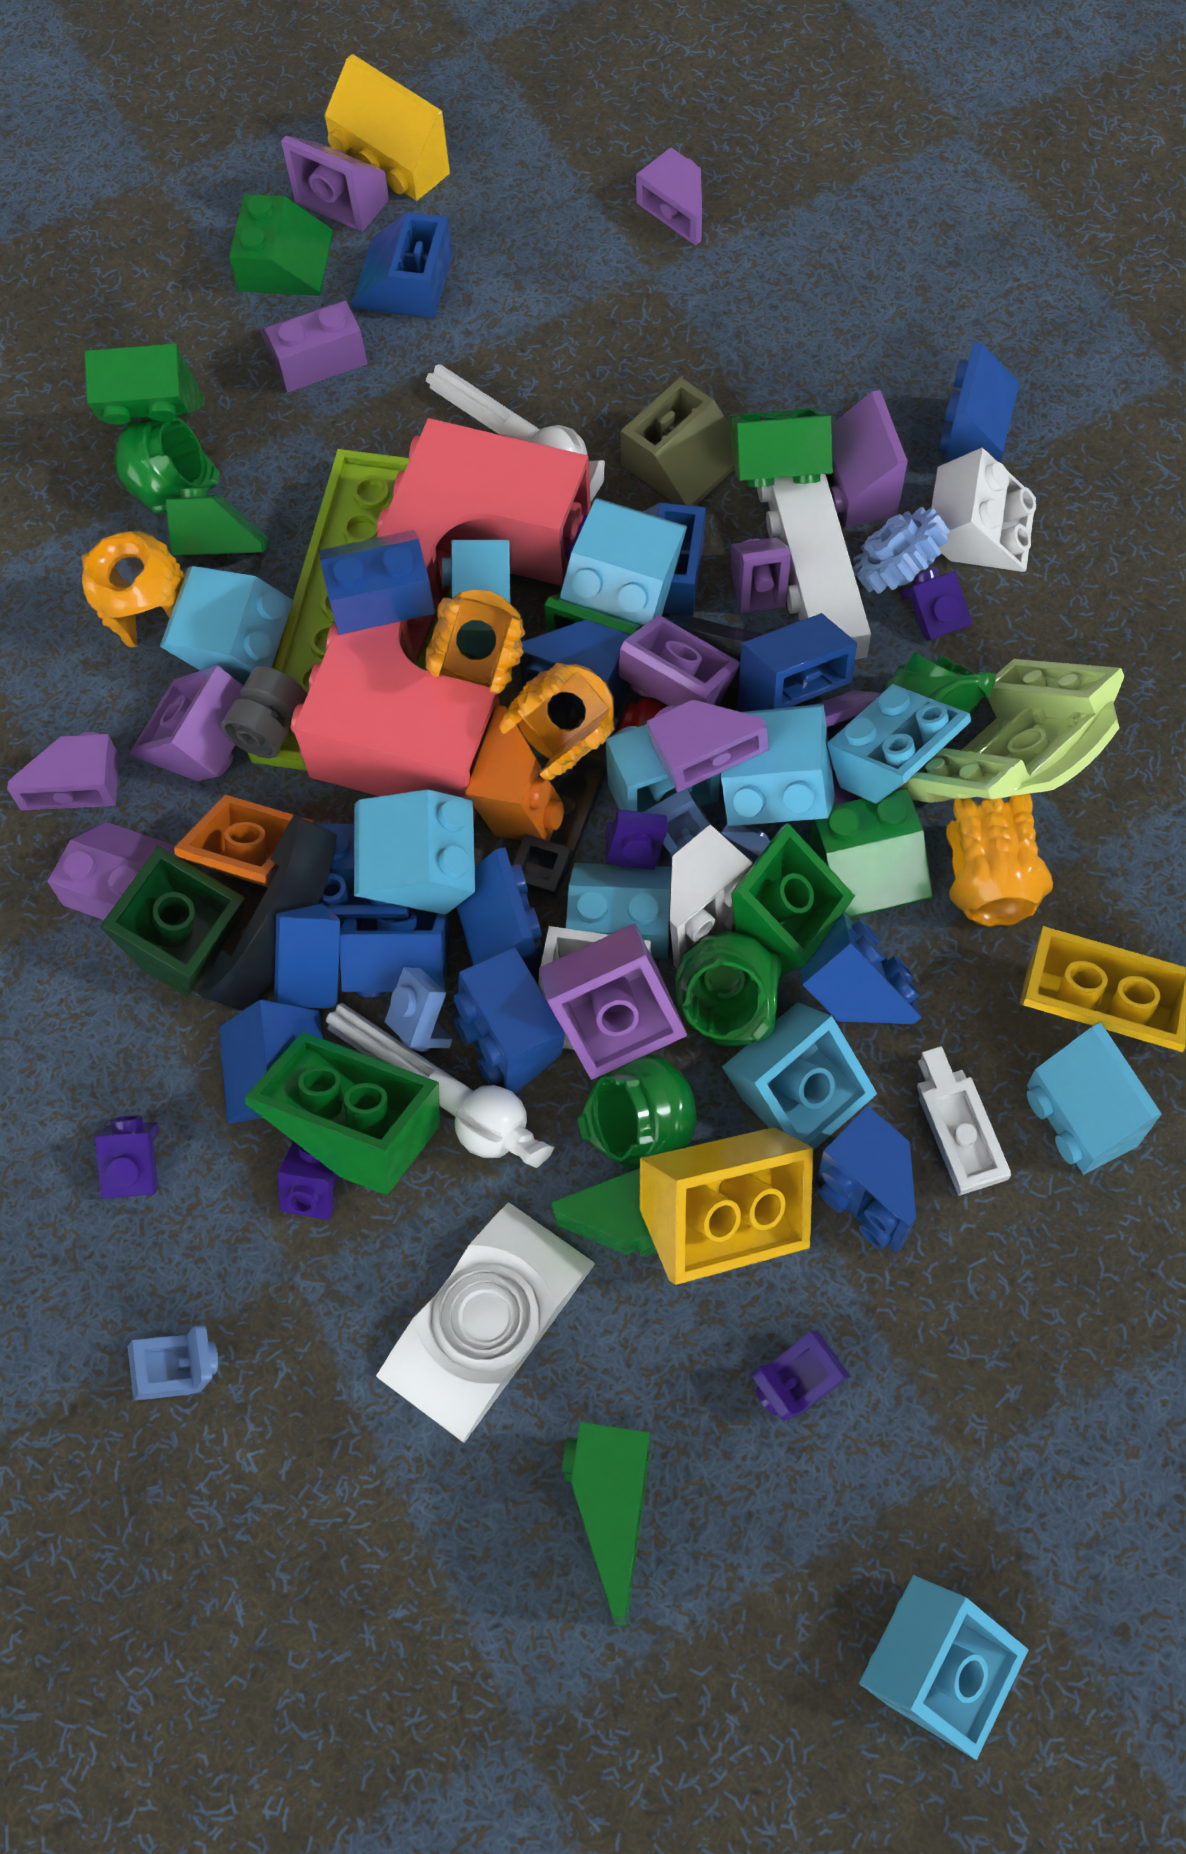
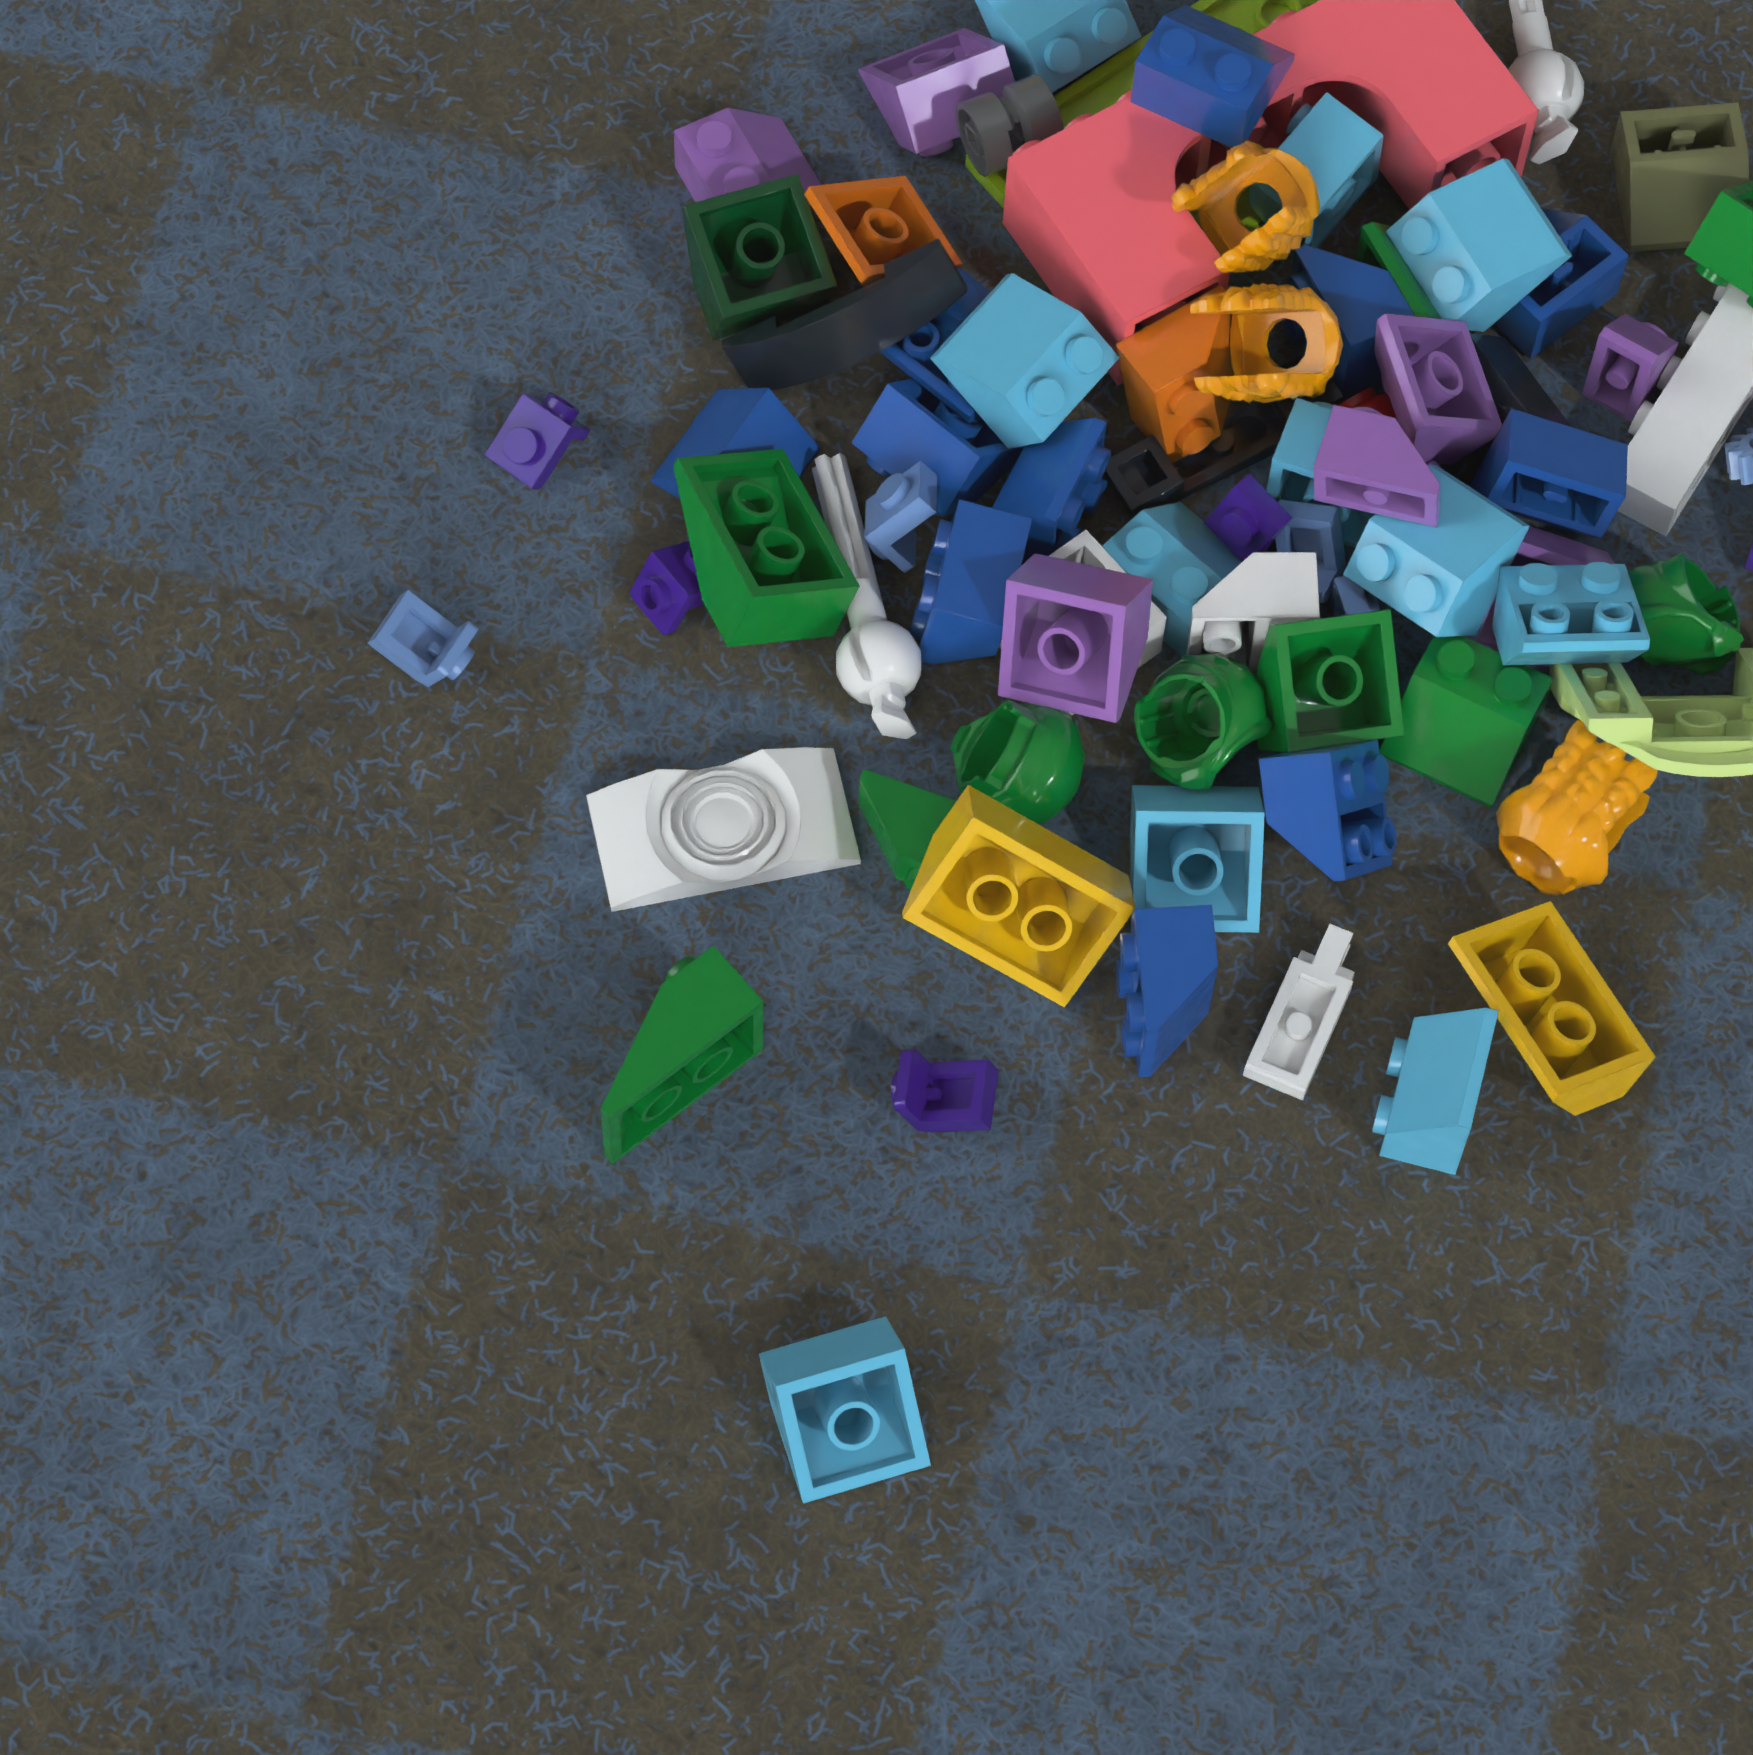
camera: 35 degrees right, 0 degrees up
(69, 775) = (784, 46): medium lavender slope -> none
(307, 957) = (844, 384): blue slope -> none

